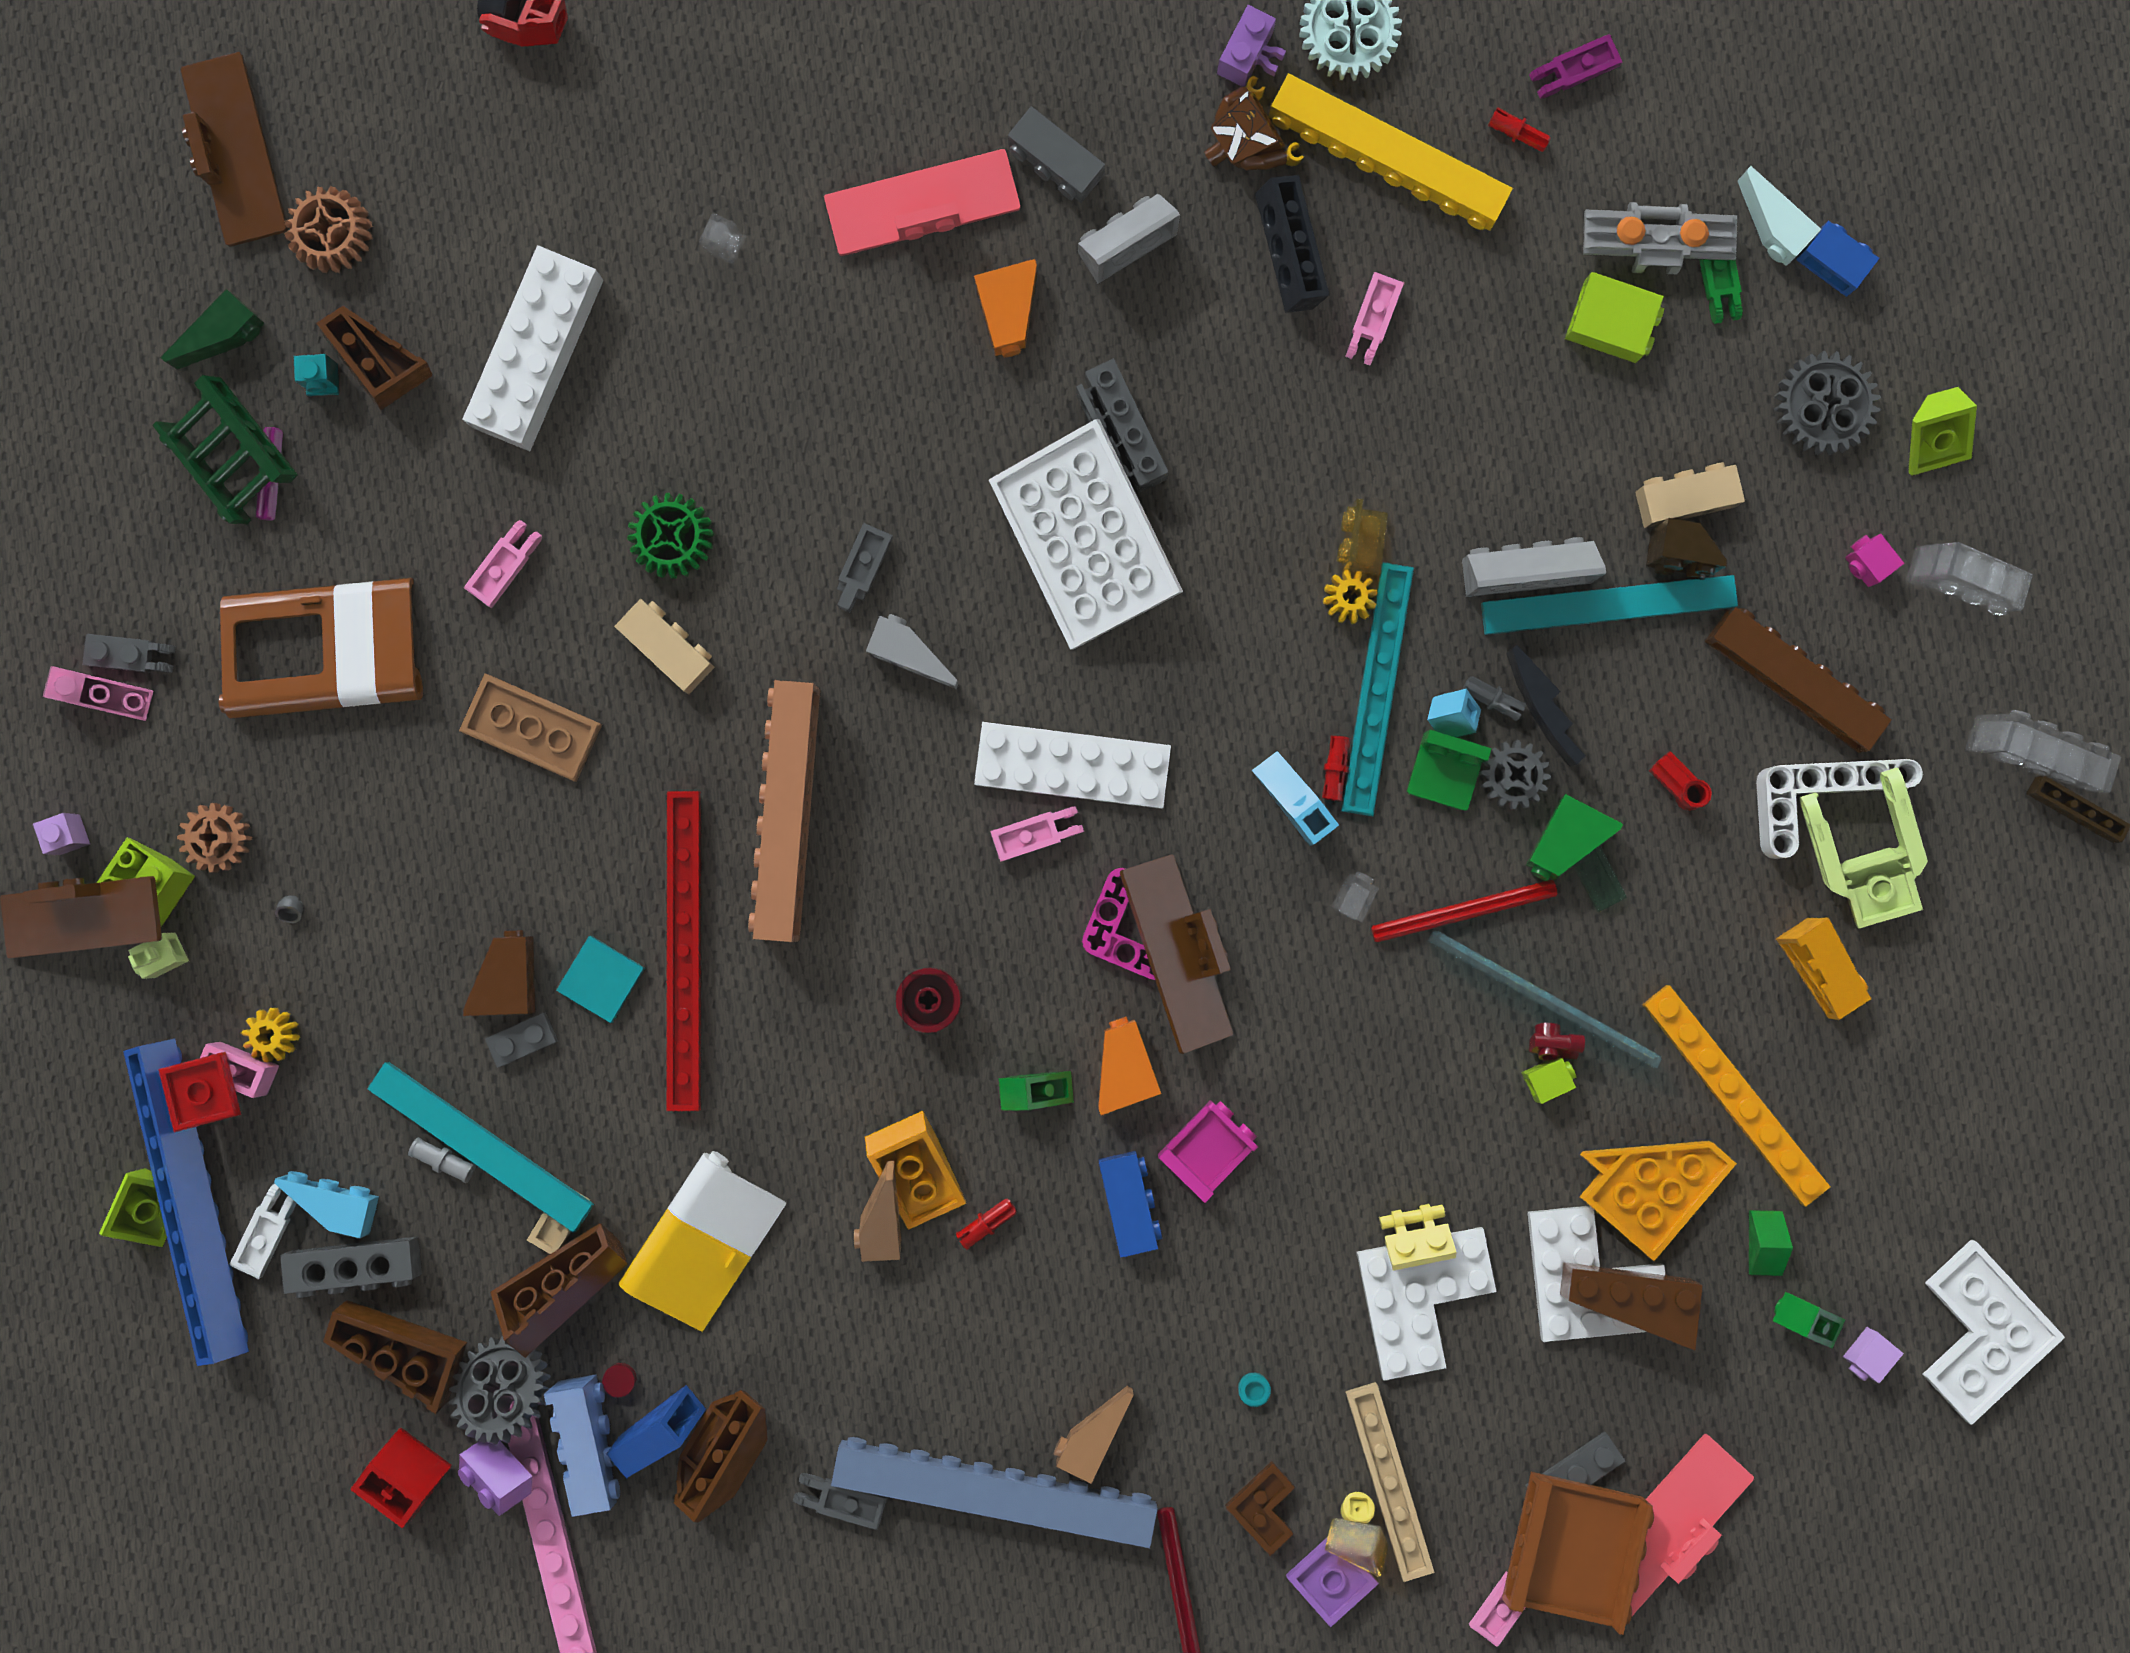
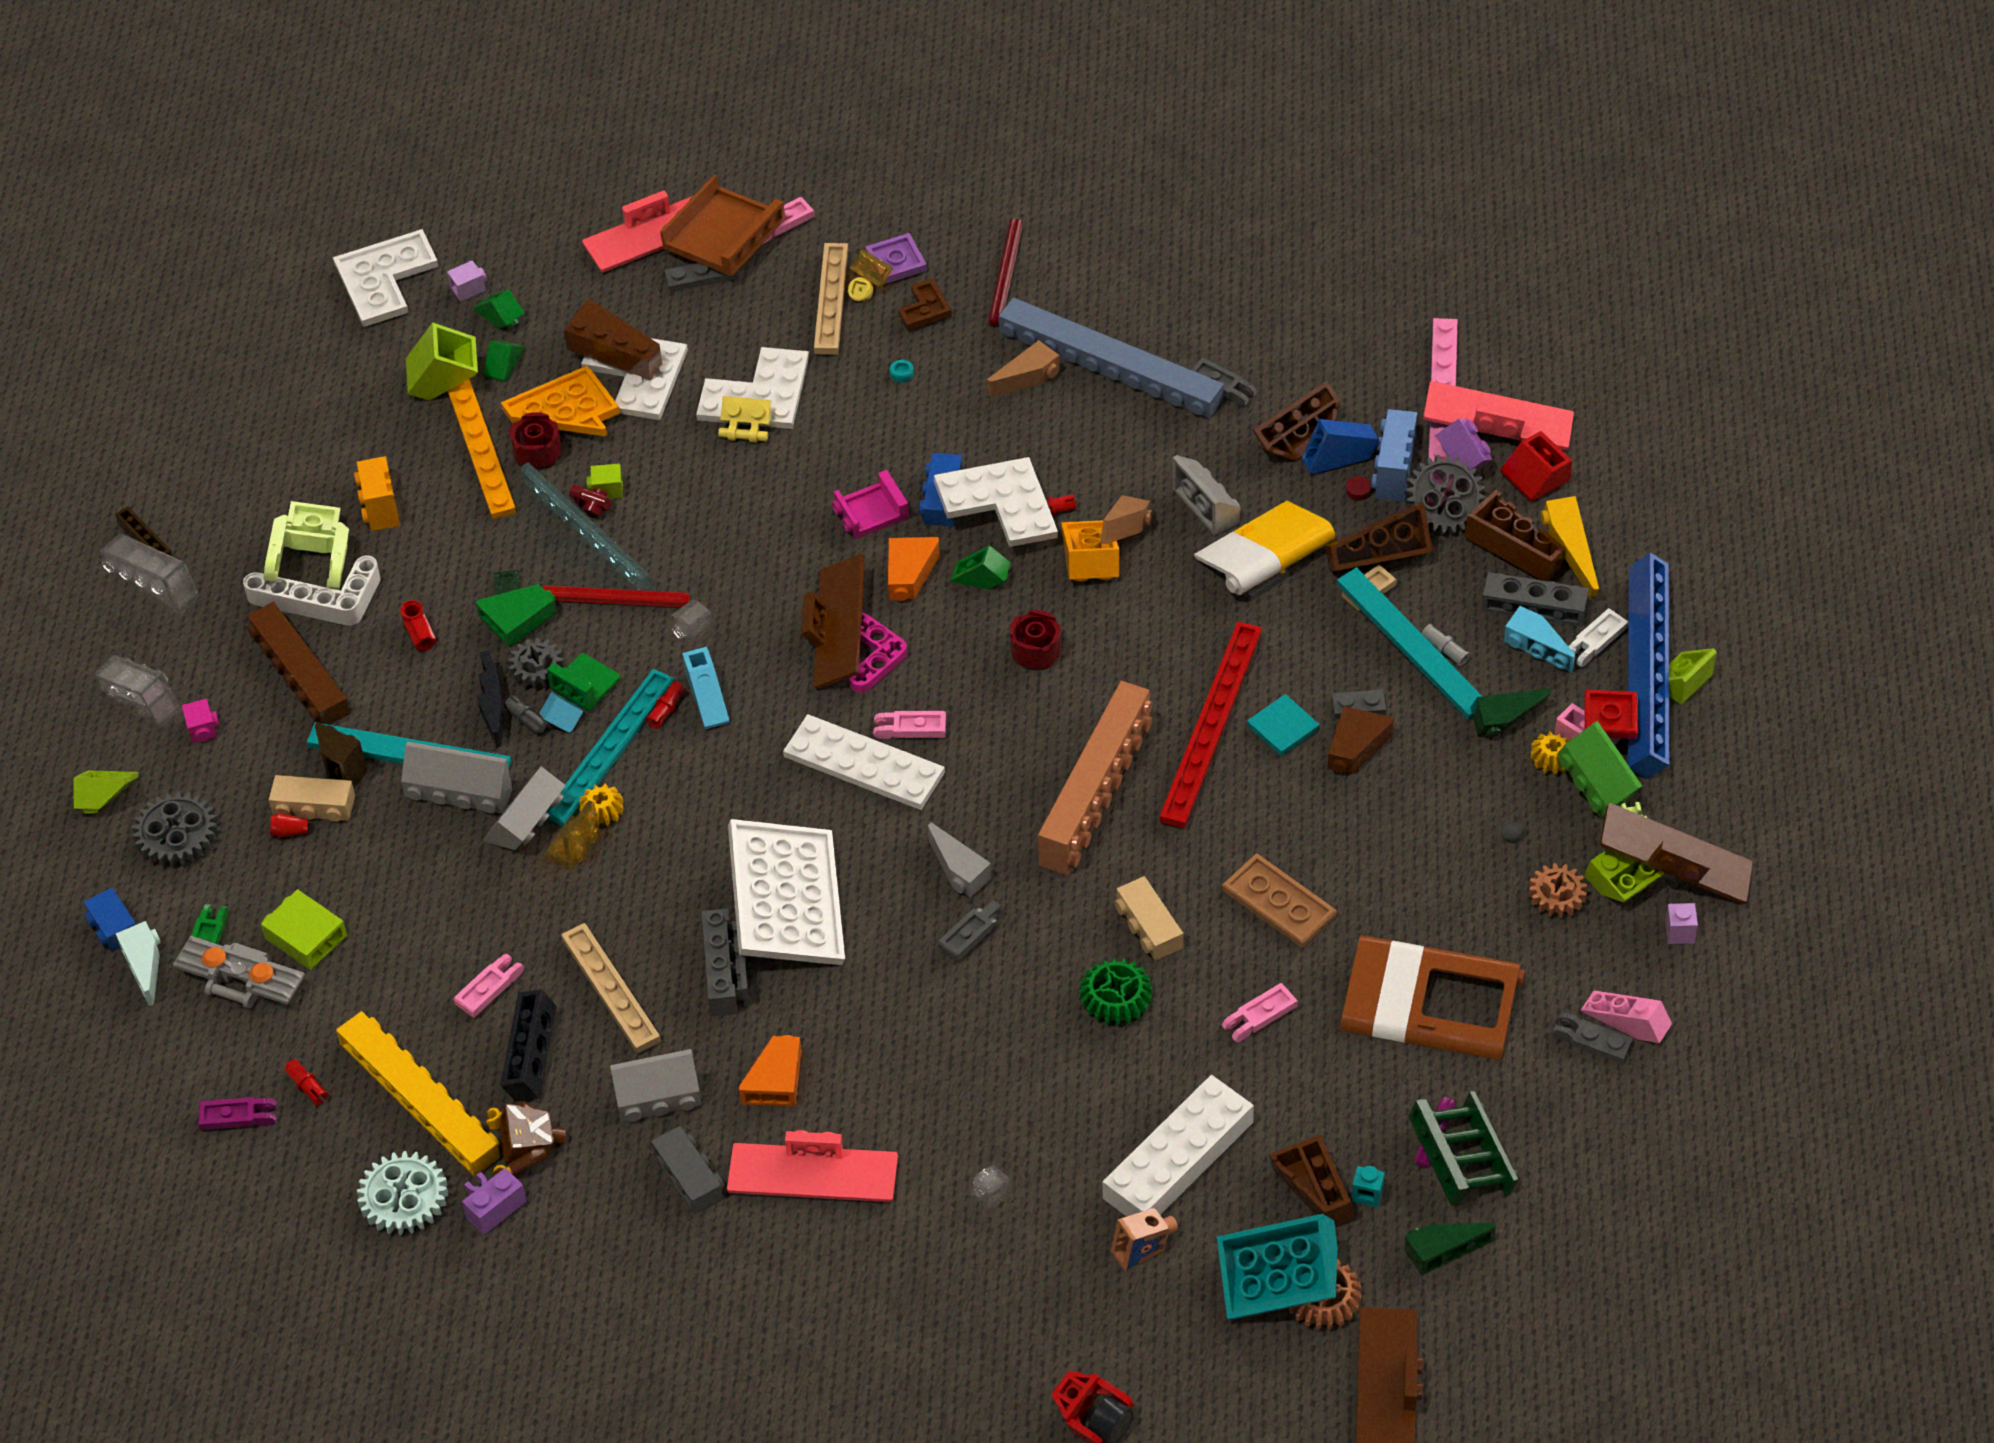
camera: 160 degrees left, 35 degrees down
(197, 1006) = (1598, 769): none -> bright green slope
(329, 1375) = (1566, 527): none -> yellow wedge
(338, 1078) = (1498, 712): none -> dark green slope
(371, 224) = (1278, 1266): none -> teal slope
(473, 1551) = (1497, 414): none -> coral bracket
(533, 224) = (1141, 1237): none -> nougat torso
(797, 1297) = (1204, 495): none -> light grey slope
(1041, 1218) = (1003, 487): none -> white plate
(1236, 358) = (611, 988): none -> tan plate
(1432, 551) = (526, 811): none -> light grey slope
(1679, 1121) = (535, 440): none -> dark red brick
(1702, 451) = (287, 825): none -> red cone
(1838, 1192) = (440, 362): none -> lime slope

